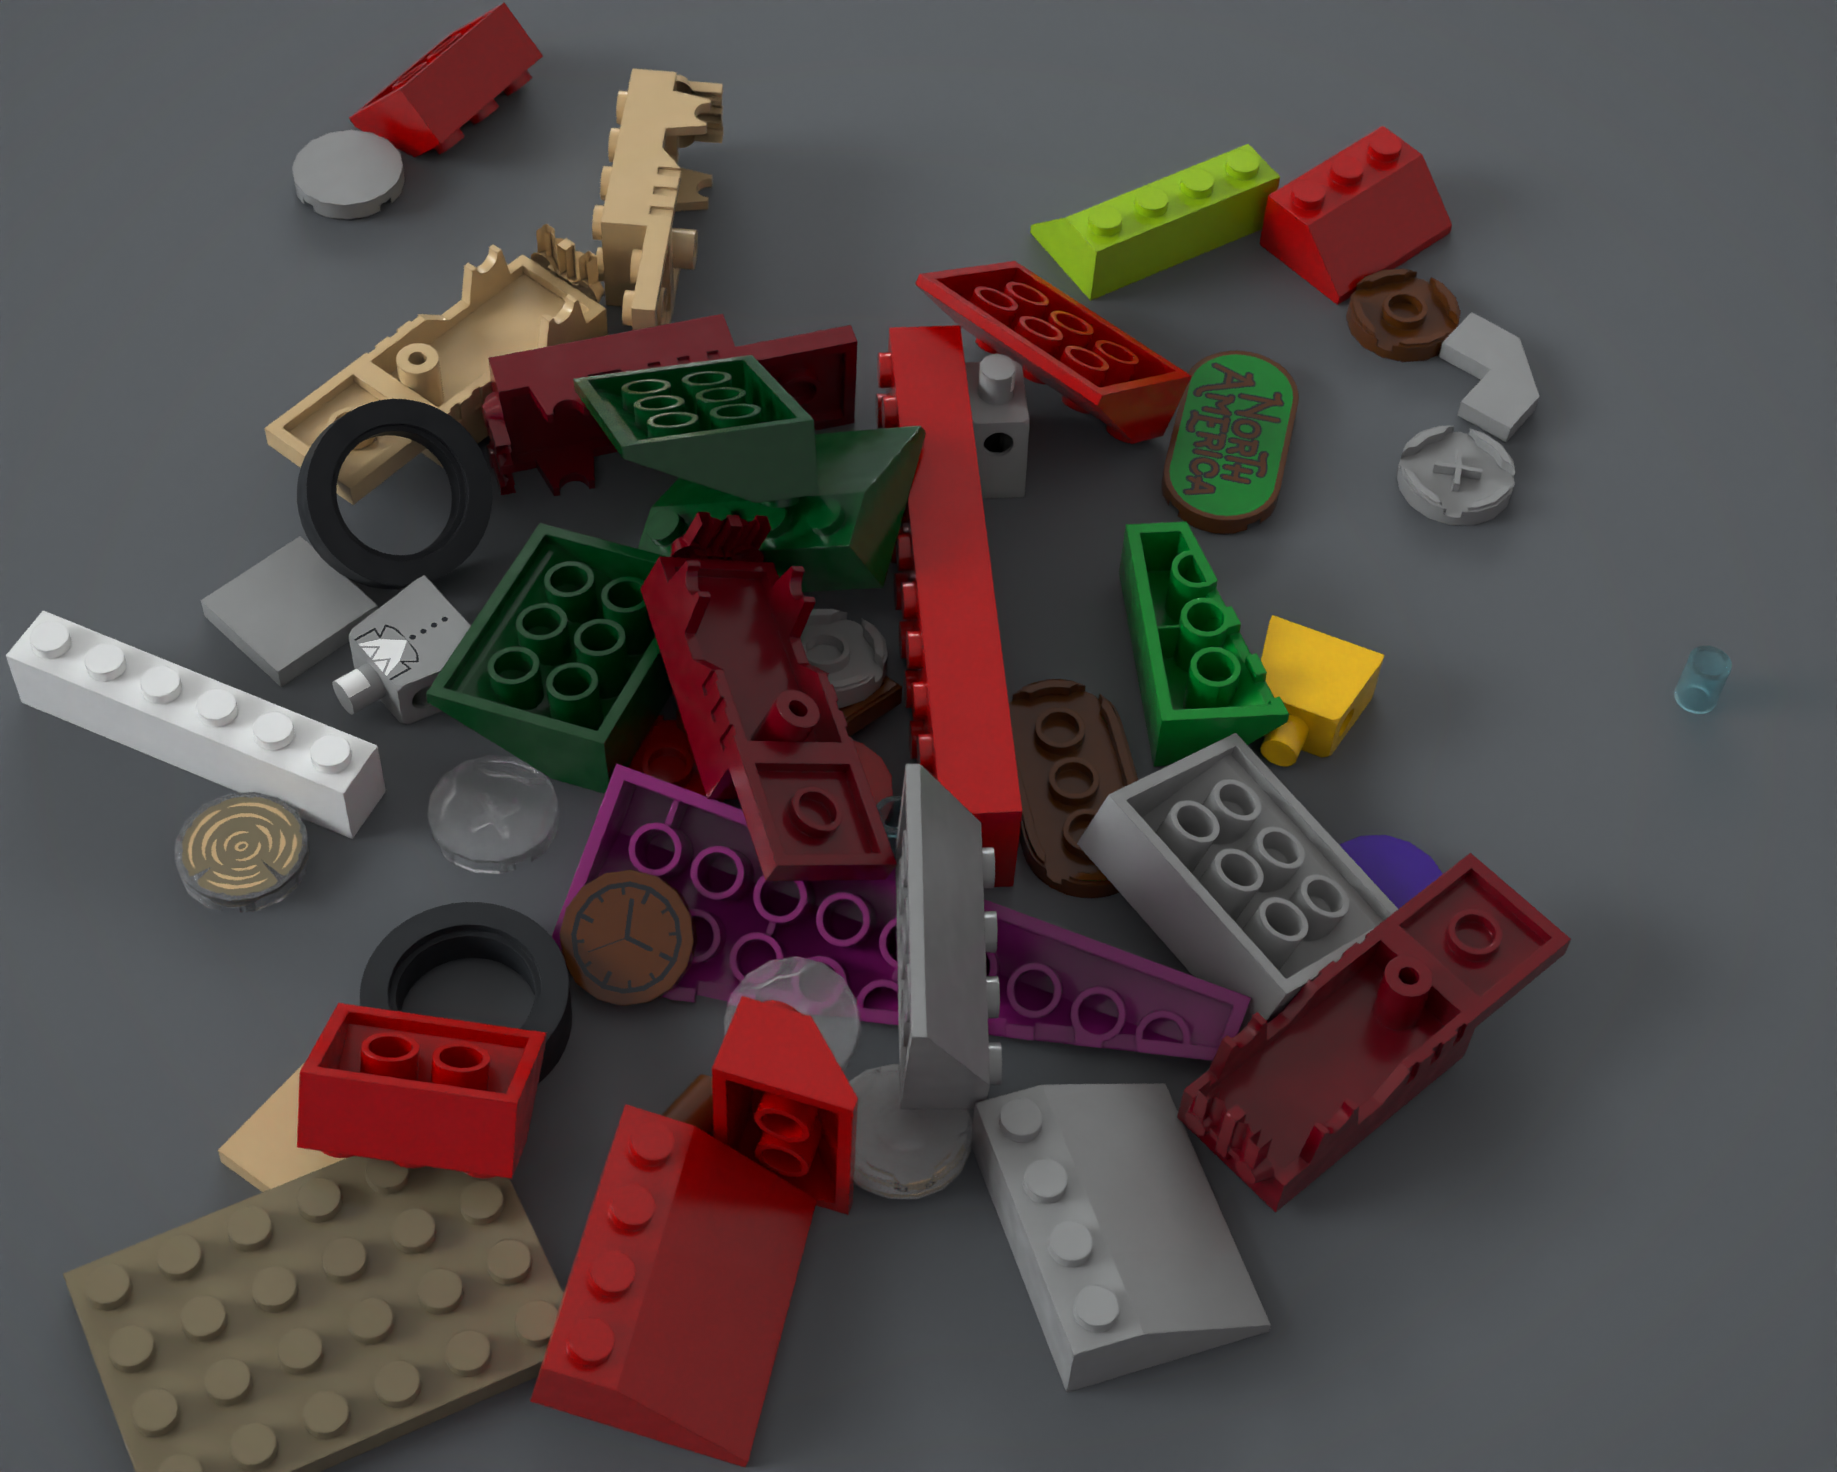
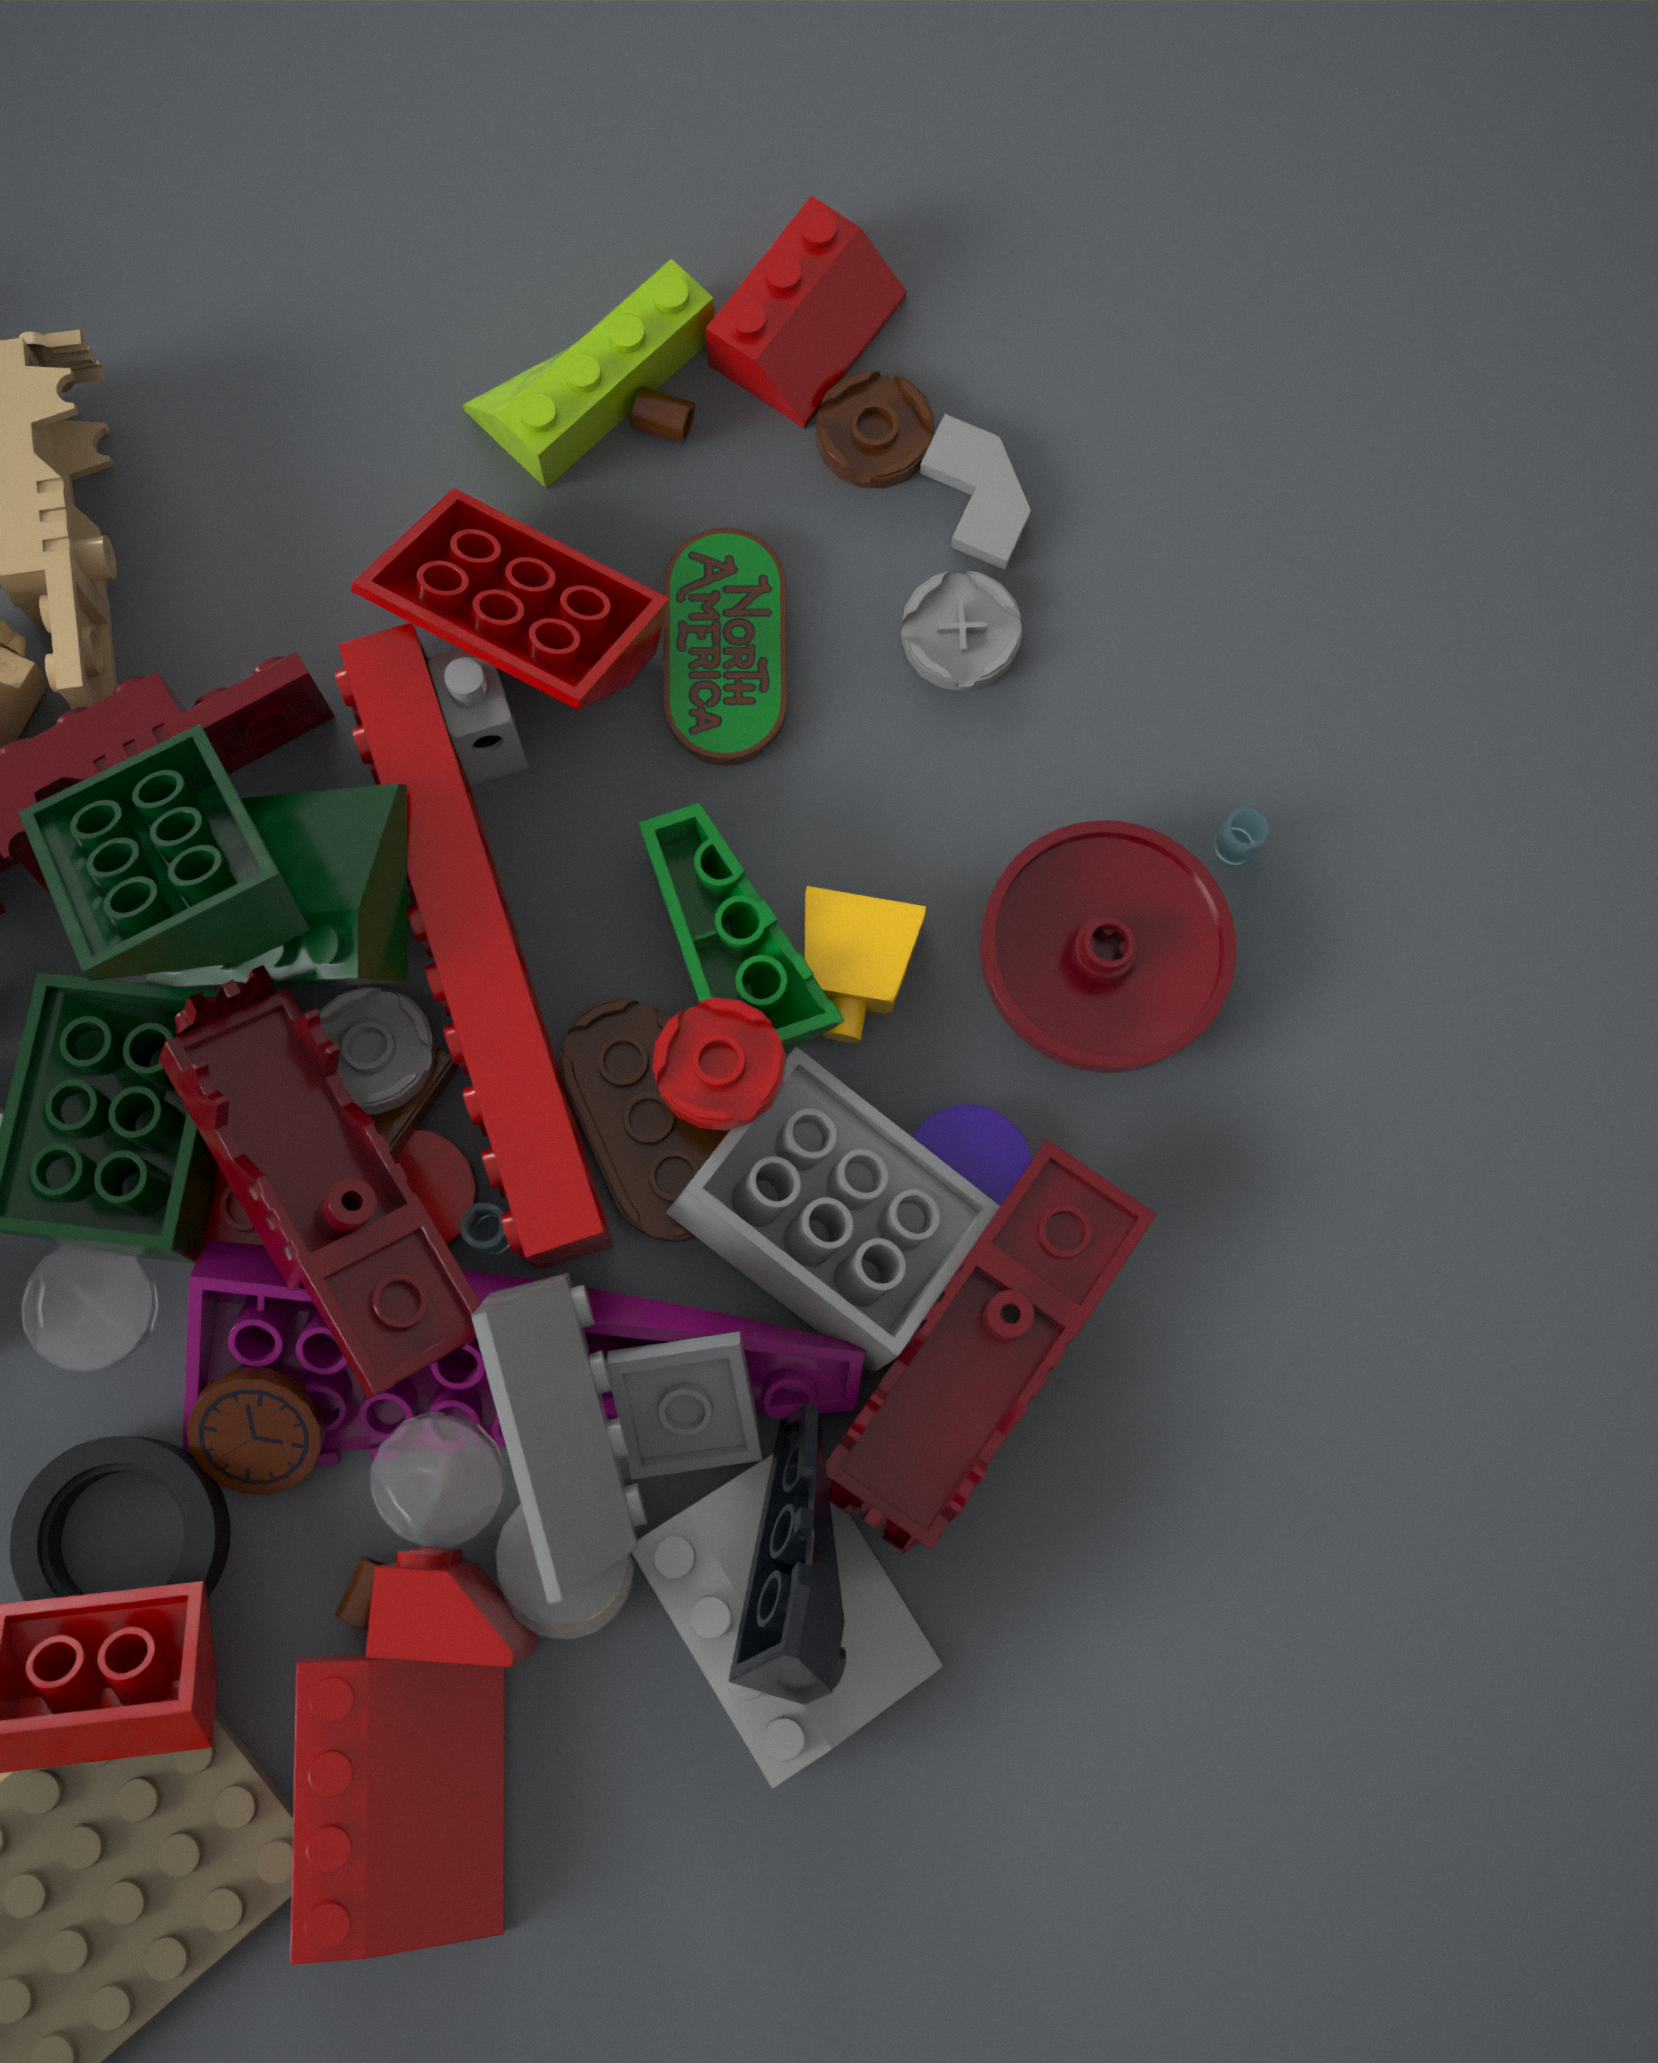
camera: 15 degrees left, 25 degrees up
(1062, 1008) = (685, 1405): none -> light grey tile
(1140, 1172) = (793, 1593): none -> black wedge
(1162, 714) = (719, 1064): none -> red tile
(1211, 263) = (662, 415): none -> reddish brown hinge
(1556, 730) = (1107, 946): none -> dark red dish

